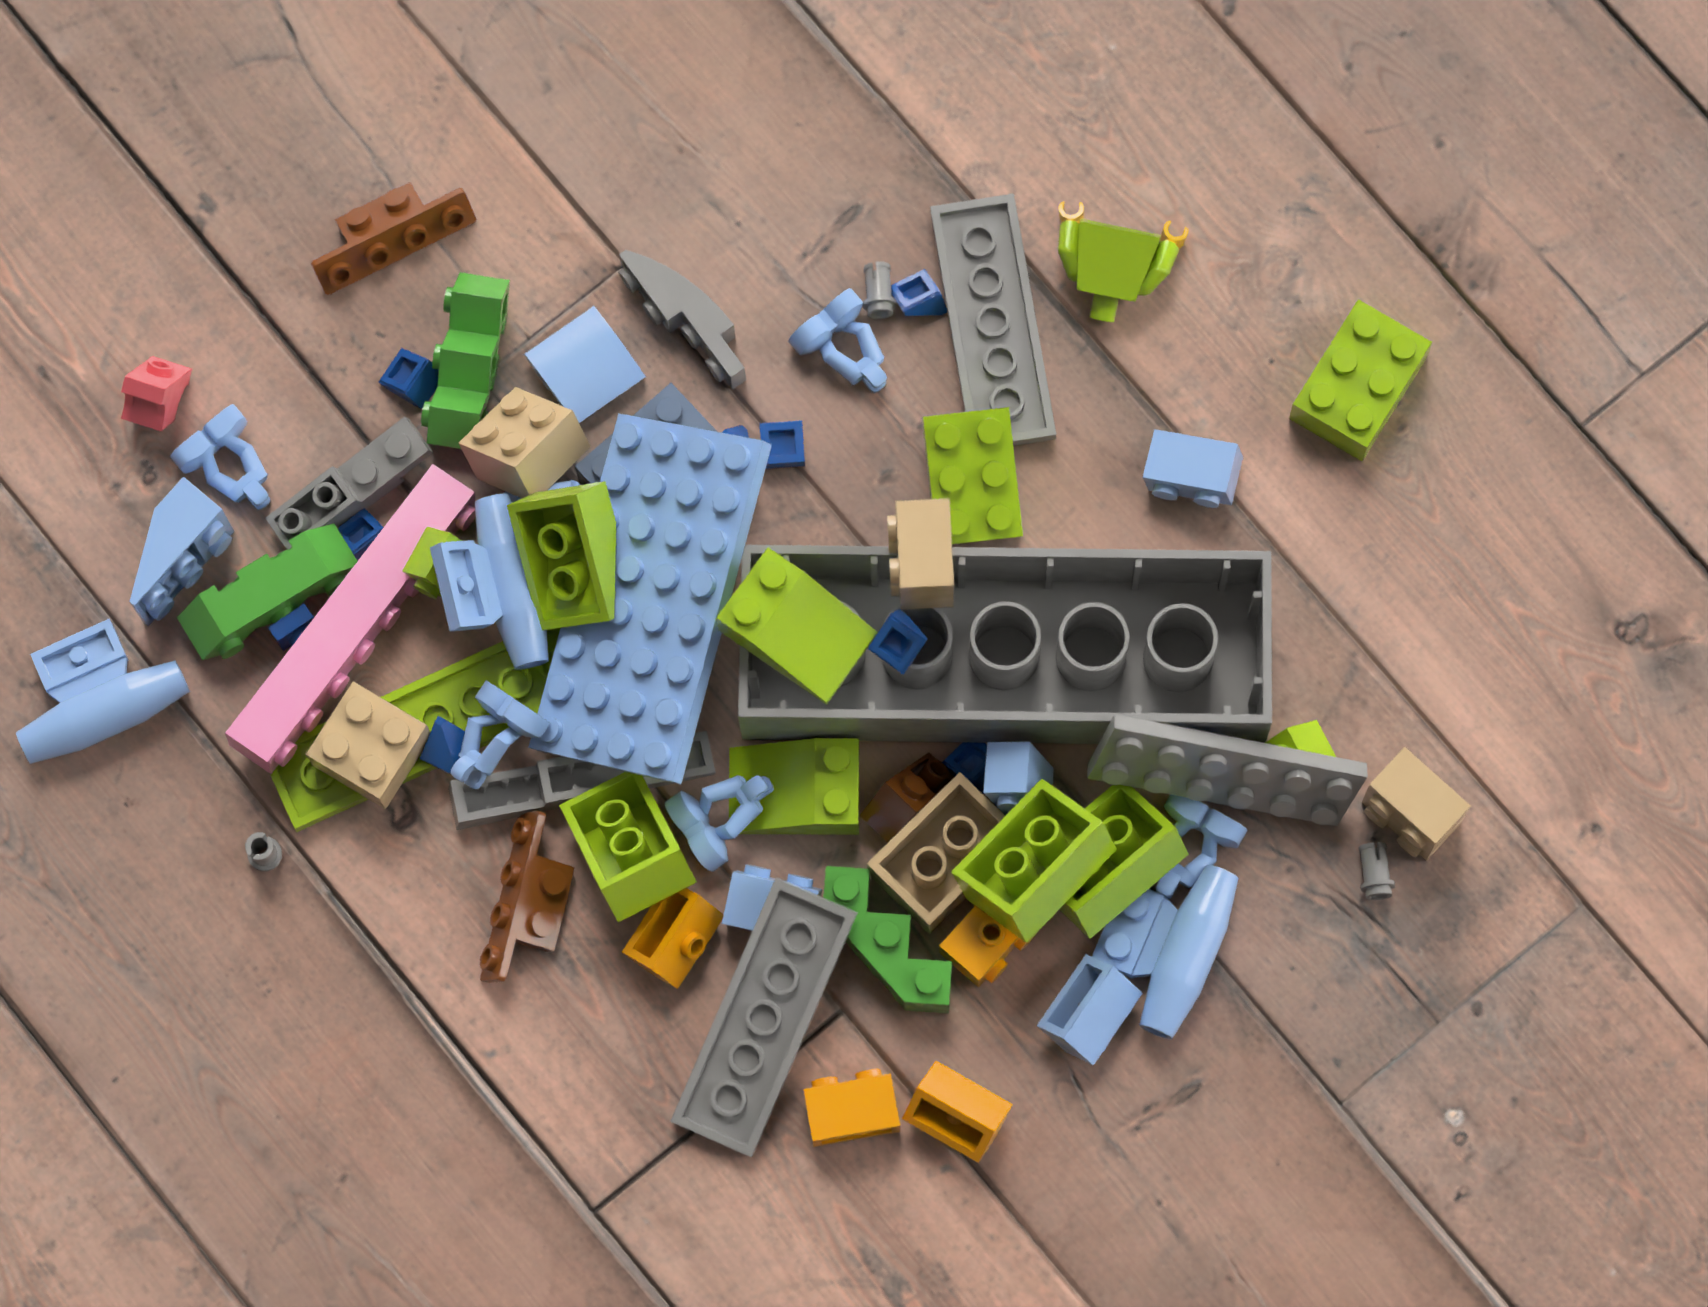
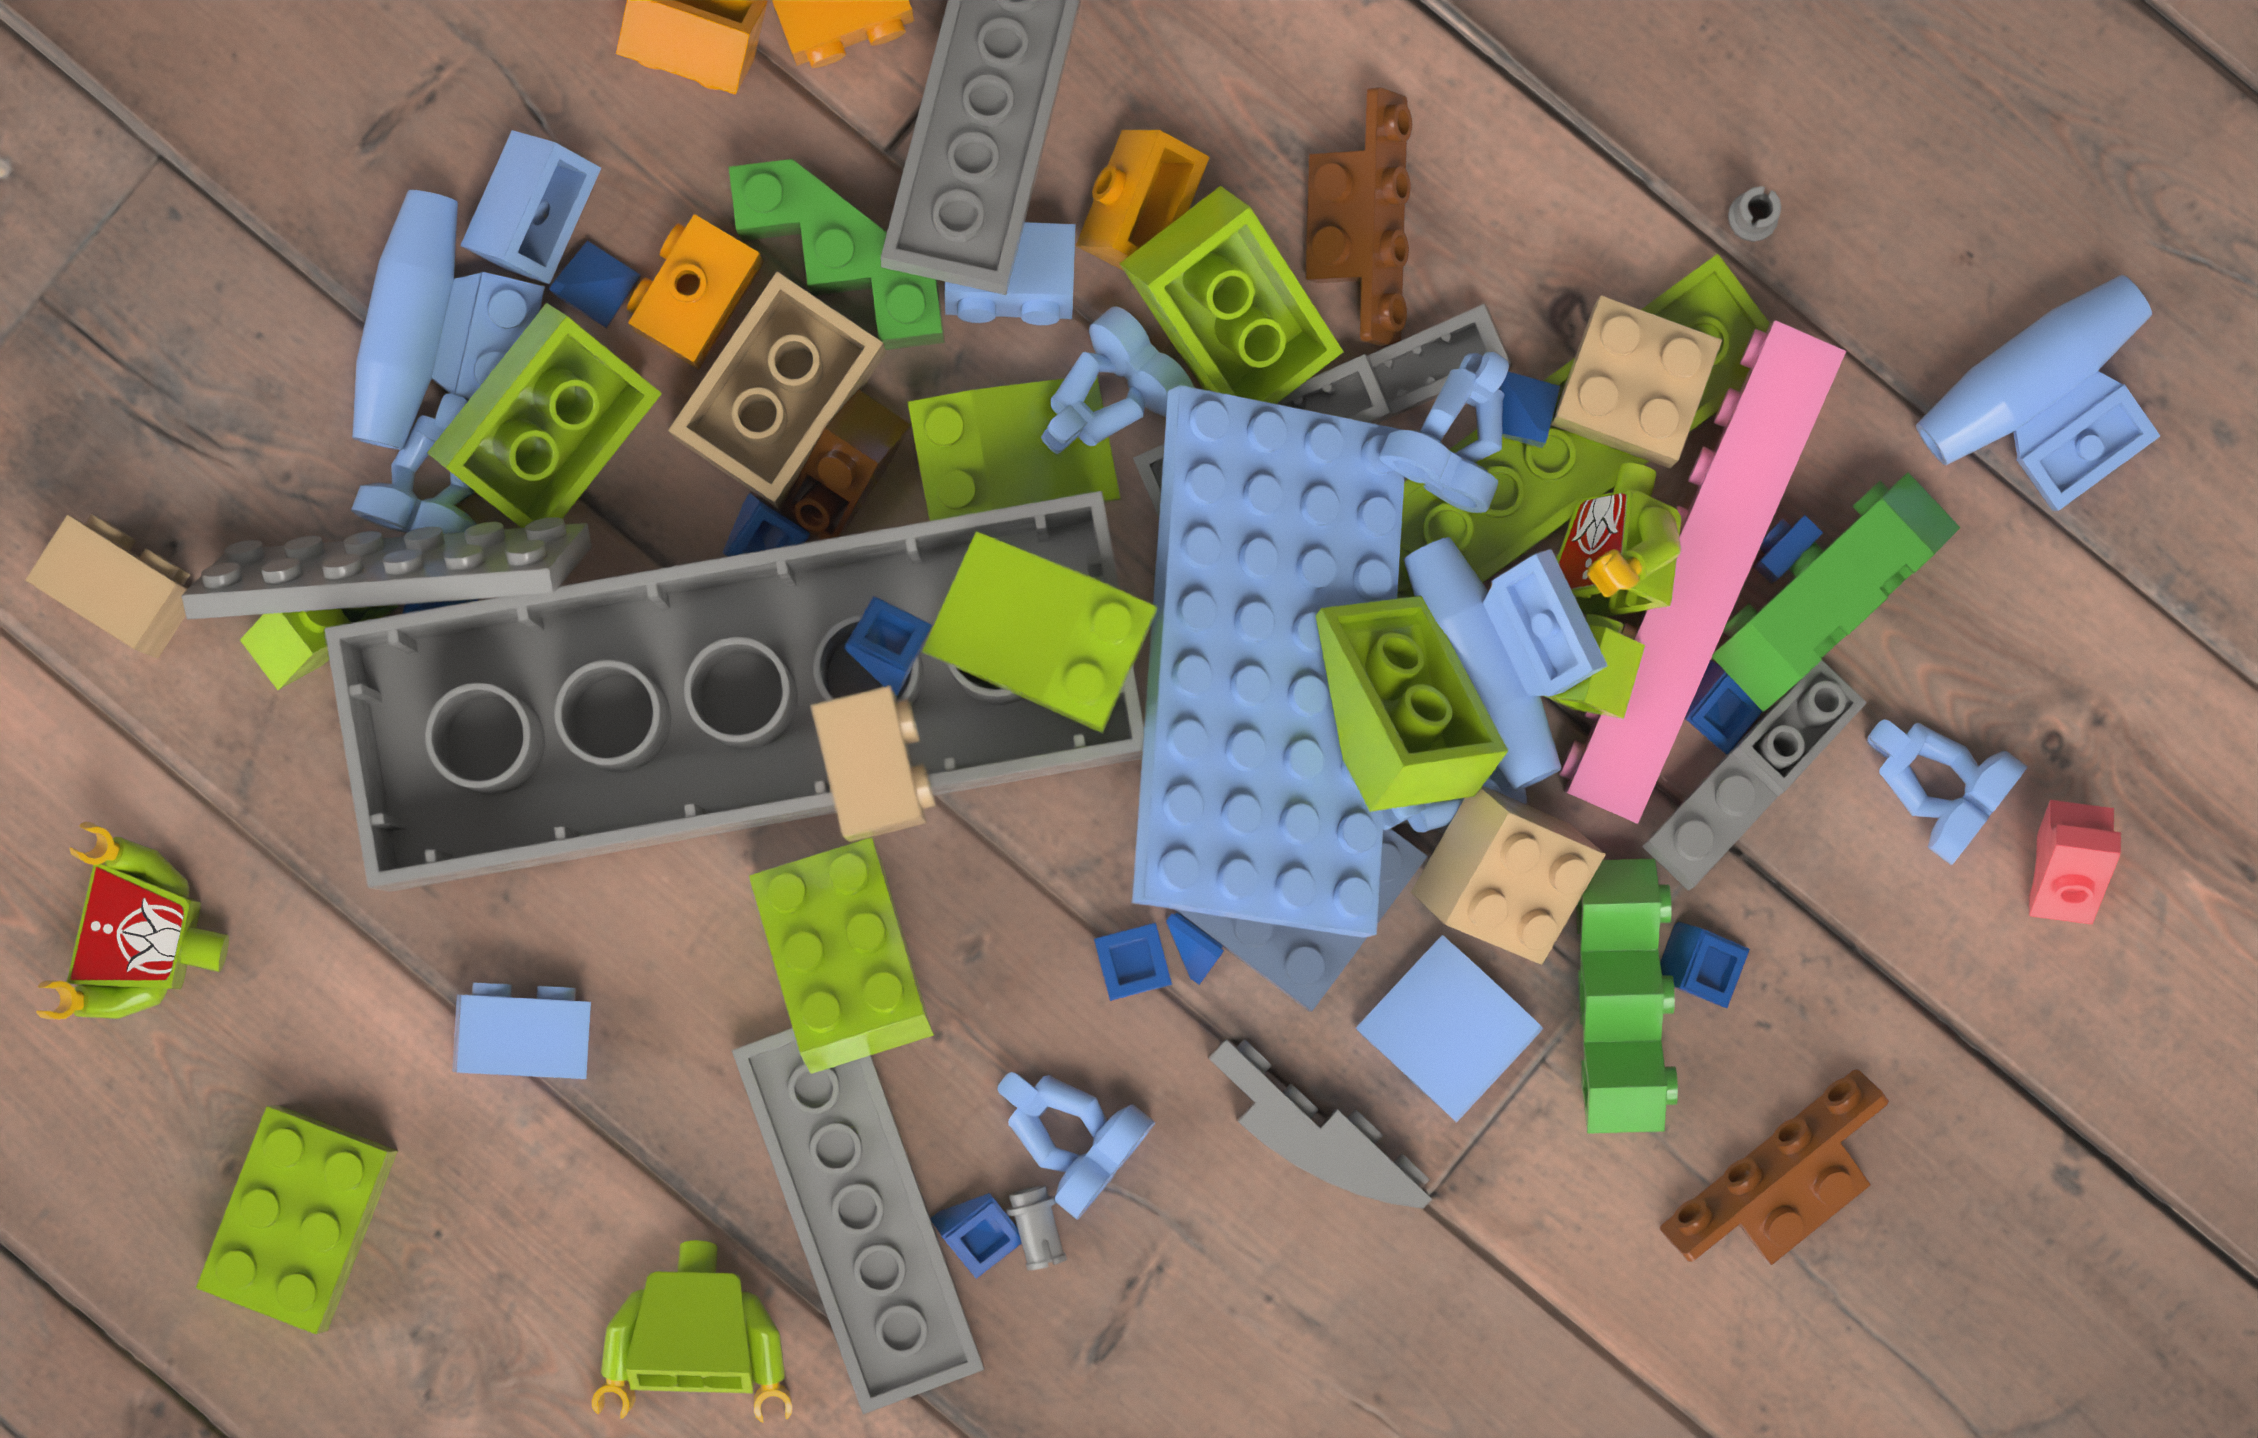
camera: 165 degrees right, 10 degrees up
(180, 540) = (1986, 632): light blue slope -> none
(410, 638) = (1622, 547): none -> torso
(1012, 772) = (689, 506): light blue brick -> none
(1034, 860) = (638, 376): lime brick -> none
(1055, 957) = (595, 284): none -> blue slope
(1375, 871) = (159, 490): light grey pin -> none
(1440, 579) = (132, 933): none -> torso

